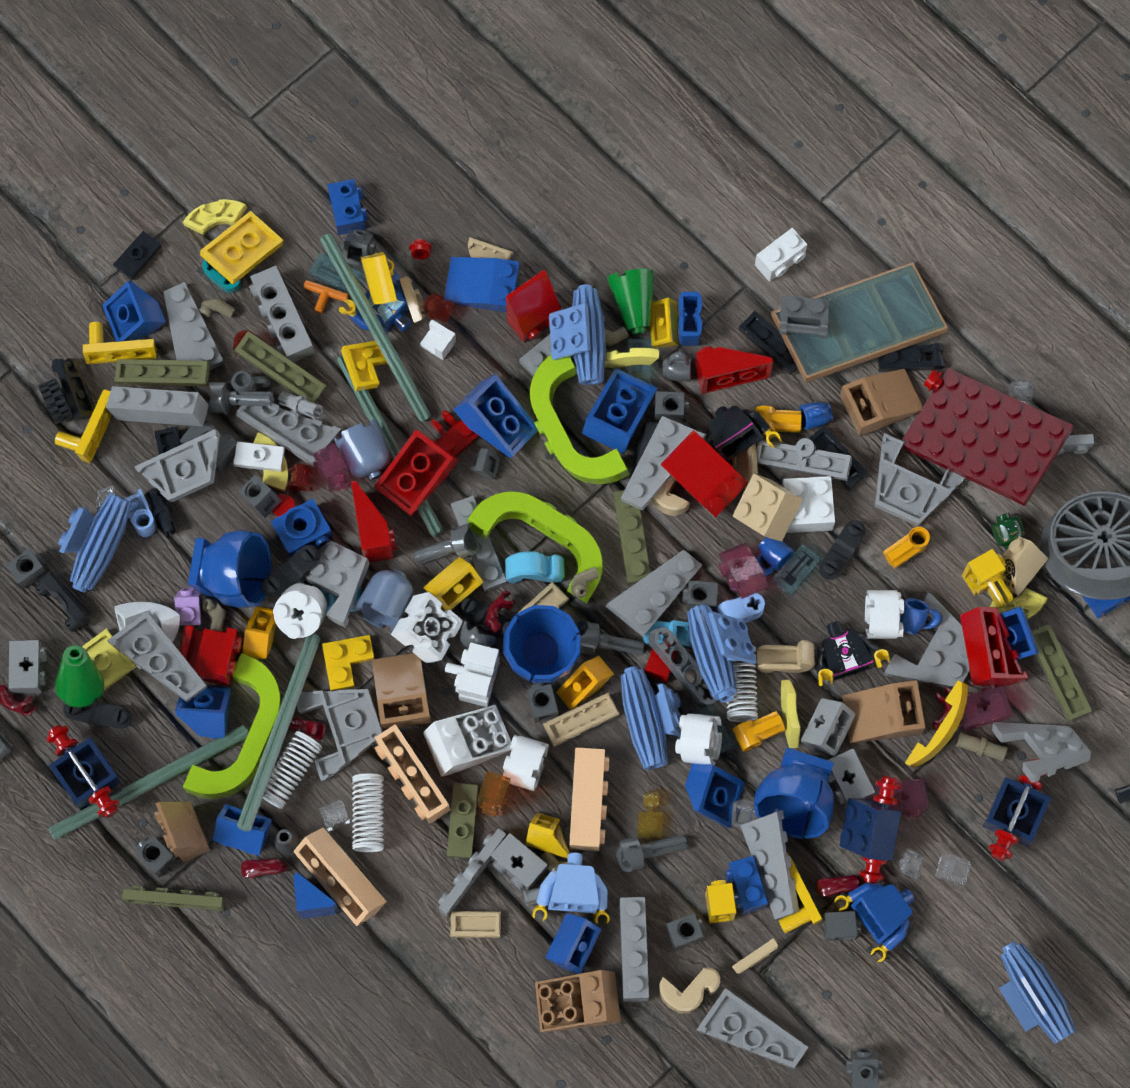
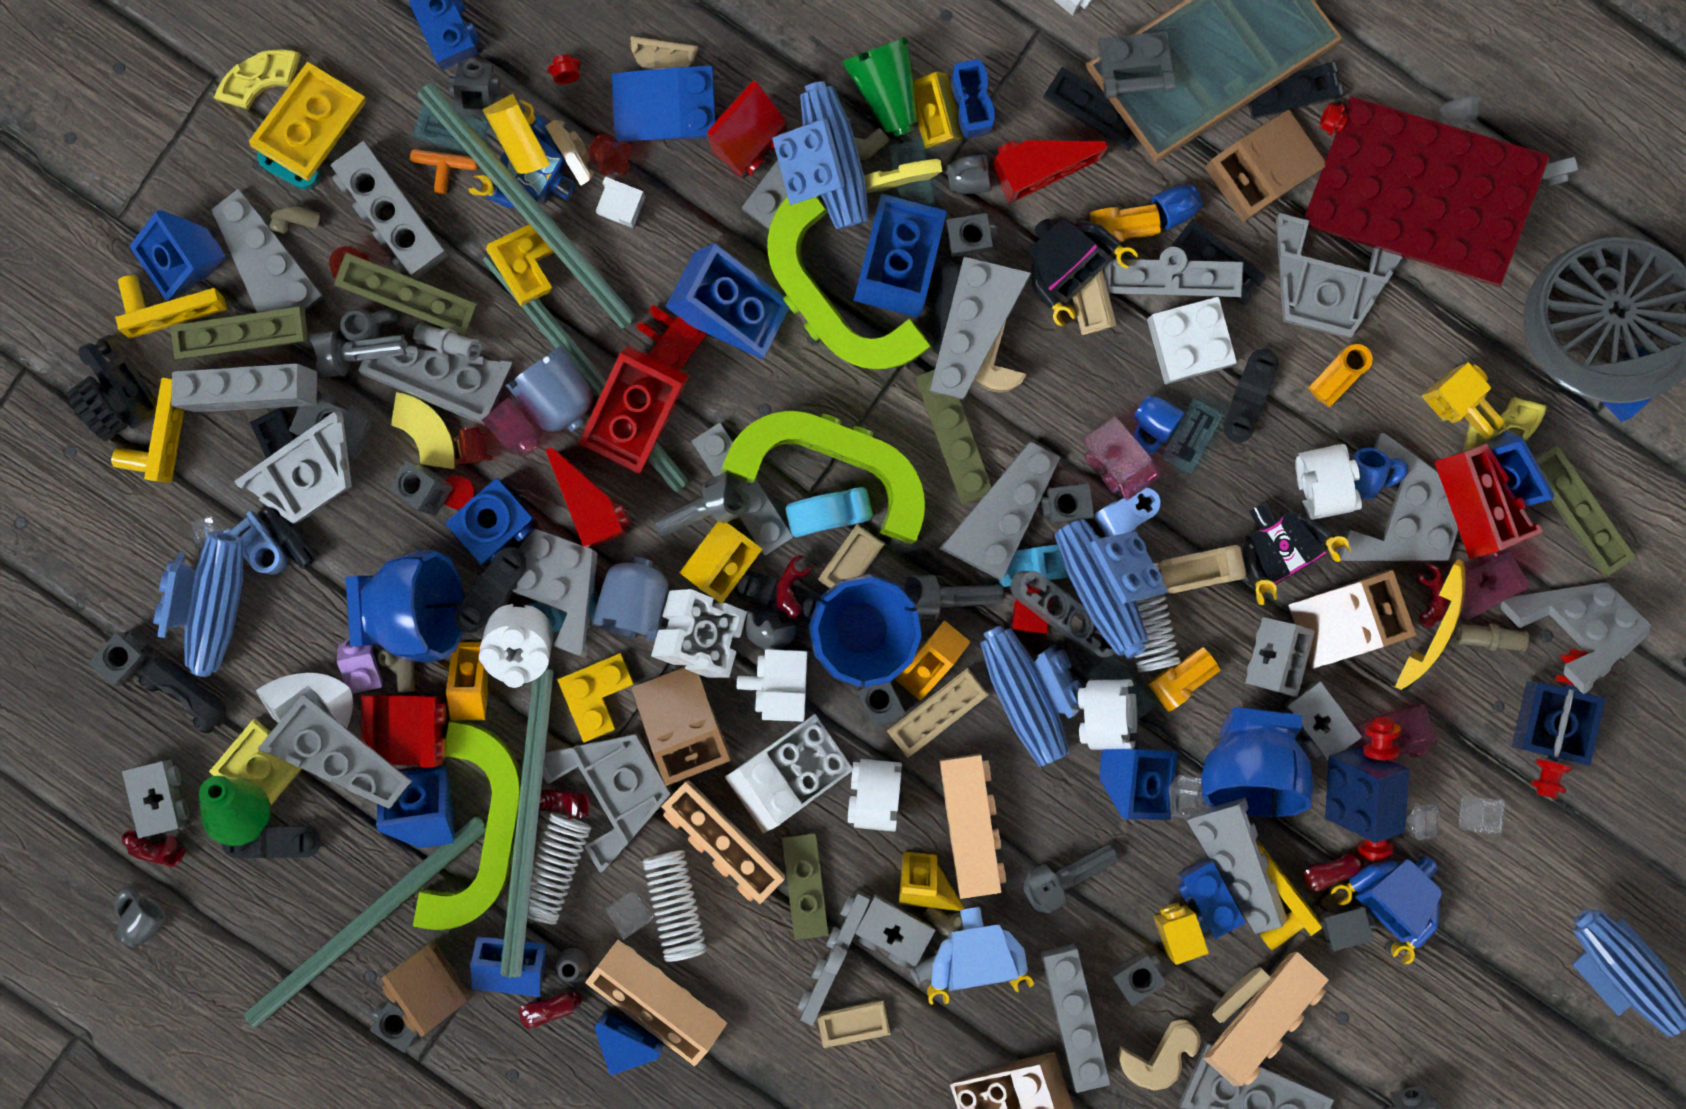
camera: 15 degrees left, 15 degrees up
(84, 772) = (272, 934): dark blue brick -> none
(137, 255) = (161, 161): black plate -> none
(163, 897) = (452, 1075): olive plate -> none
(259, 456) = (406, 429): white plate -> none
(486, 464) = (729, 373): dark grey tile -> none
(494, 794) = (842, 849): clear orange brick -> none
(573, 943) = (992, 1028): blue brick -> none
(581, 580) = (899, 525): dark tan arm -> none
(650, 823) = (1059, 836): clear yellow plate -> none
(704, 473) = (1041, 332): red slope -> none
(767, 507) = (1139, 362): tan brick -> none
(769, 975) = (1266, 1019): none -> light nougat brick
(789, 713) = (1222, 646): light yellow tile -> none
(1007, 529) = (1478, 321): dark green head -> none
(1022, 563) = (1508, 367): tan slope -> none

